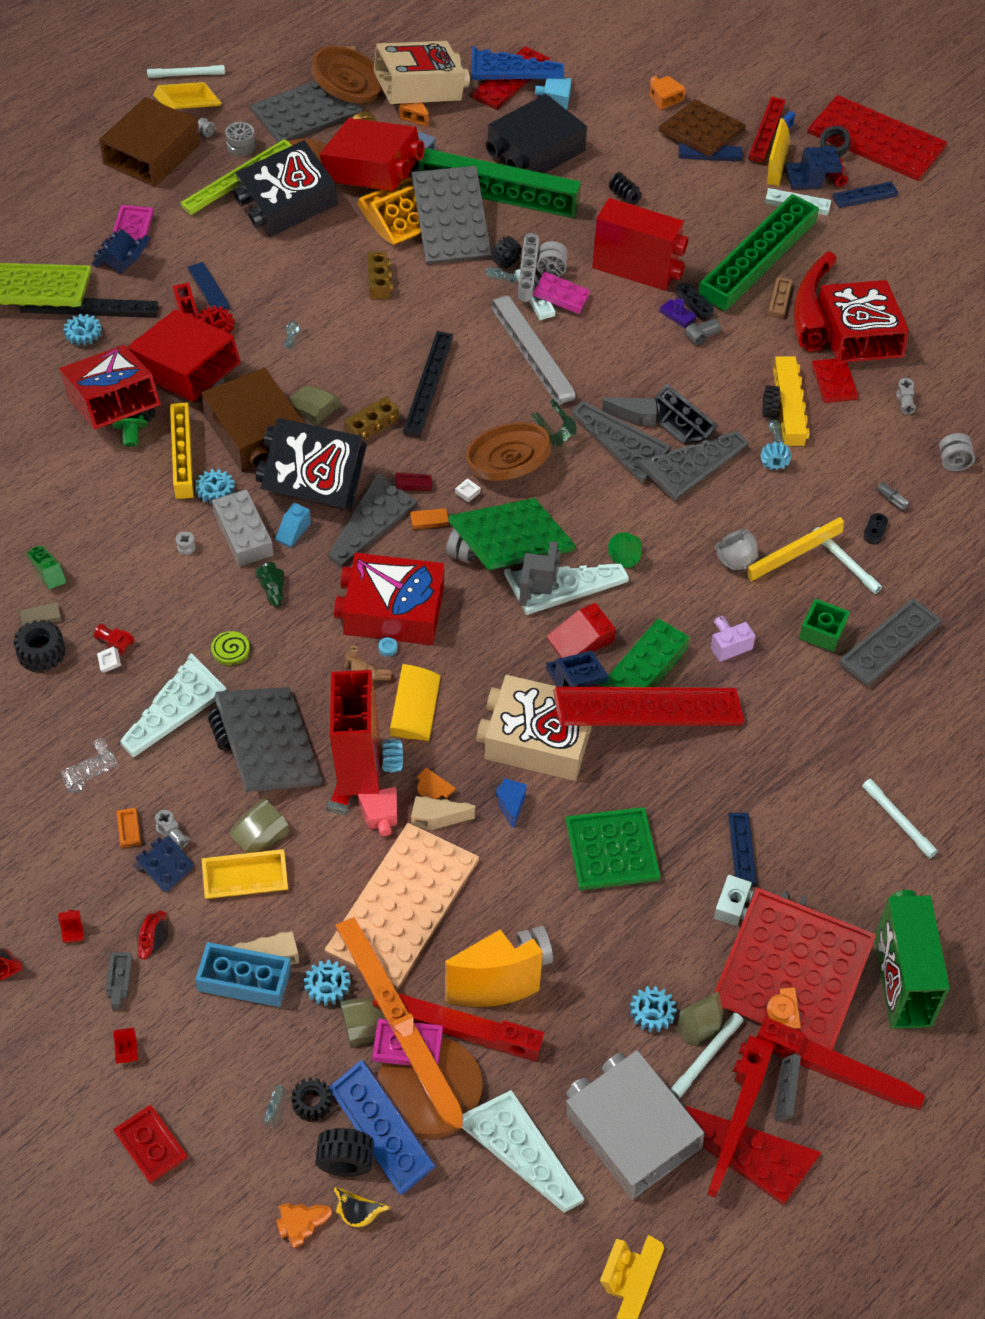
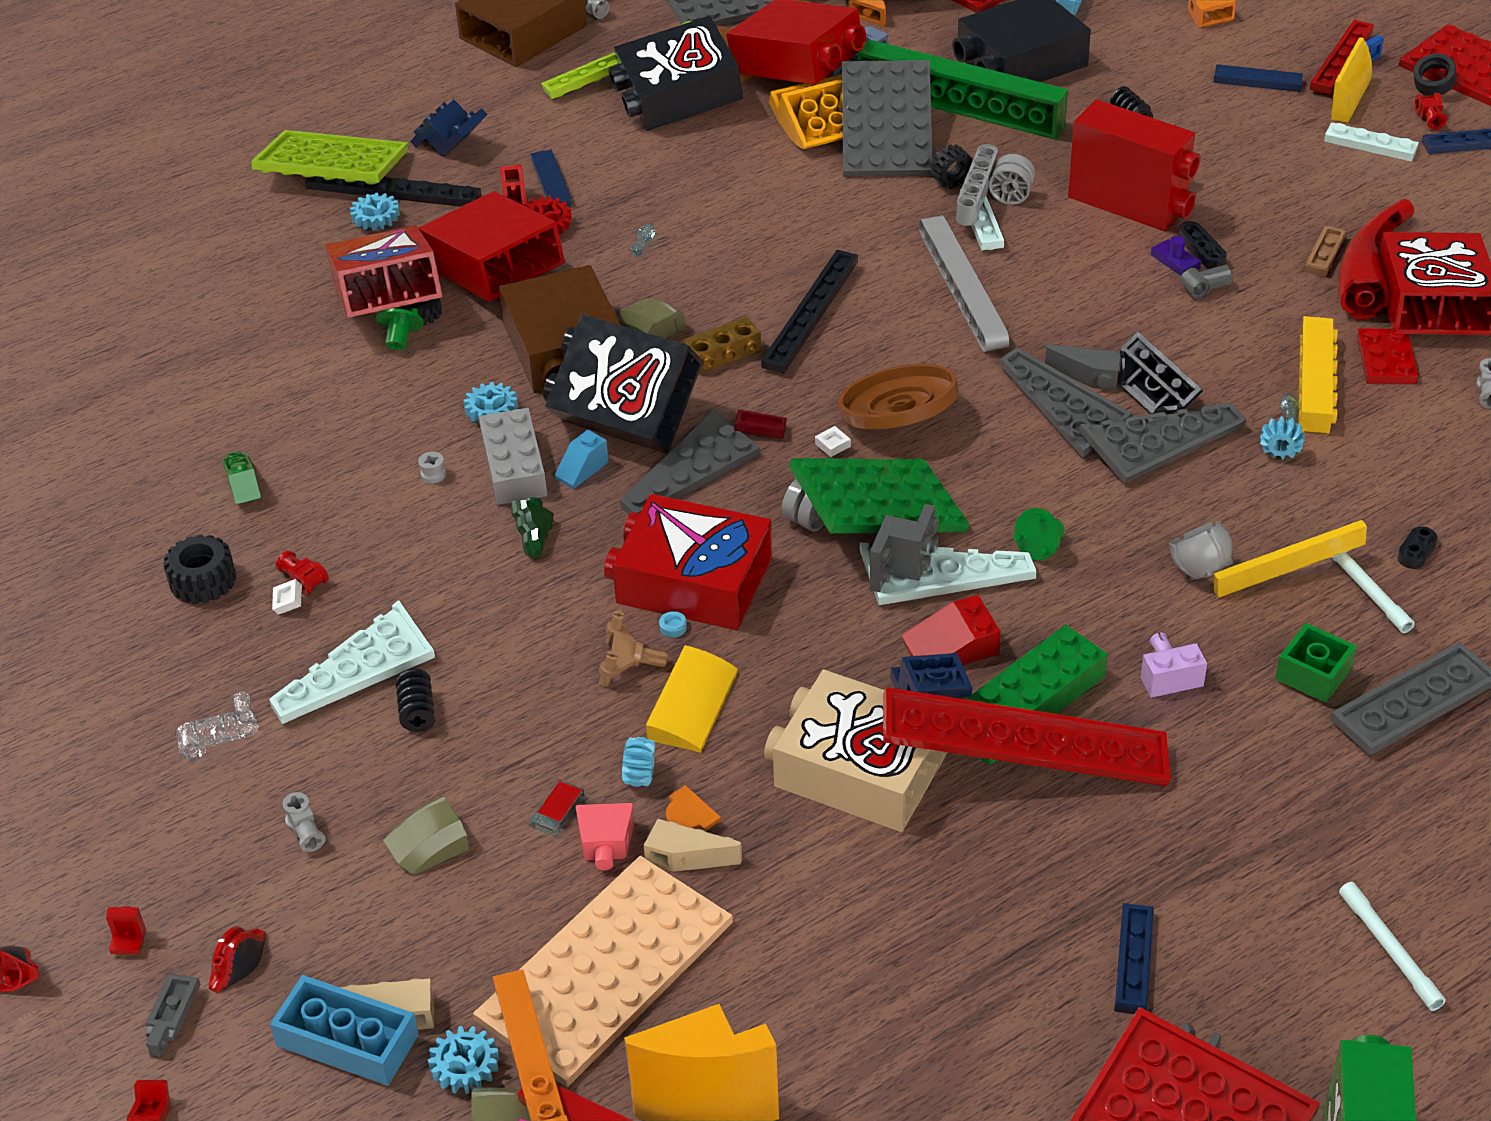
camera: 15 degrees right, 10 degrees down
(45, 612) = (229, 532): dark tan tile -> none
(128, 827) = (248, 814): orange tile -> none
(134, 220) = (478, 95): dark pink plate -> none
(164, 863) = (280, 865): dark blue bracket -> none
(181, 451) = (458, 357): yellow brick -> none
(230, 648) = (455, 602): lime tile -> none
(240, 139) = (636, 19): light grey wheel -> none
(244, 874) = (389, 894): yellow slope -> none
(268, 739) = (470, 720): dark grey plate -> none
(355, 732) = (581, 714): red brick -> none
(379, 275) = (776, 181): pearl gold brick -> none
(429, 518) = (768, 472): orange tile -> none
(496, 273) = (935, 192): clear light blue piece -> none
(511, 799) = (799, 842): blue slope -> none
(541, 938) = (789, 1050): light grey wheel -> none
(561, 292) = (1017, 219): dark pink plate -> none
(567, 429) = (983, 380): clear green piece -> none
(612, 848) = (934, 930): green plate -> none
(702, 127) = (1252, 48): reddish brown plate -> none
(737, 890) = (1106, 1012): light aqua brick -> none
(758, 252) = (1302, 192): green brick -> none
(771, 401) = (1287, 370): black tyre -> none
(813, 167) = (1398, 101): dark blue bracket -> none
(893, 496) = (1450, 507): dark grey axle -> none

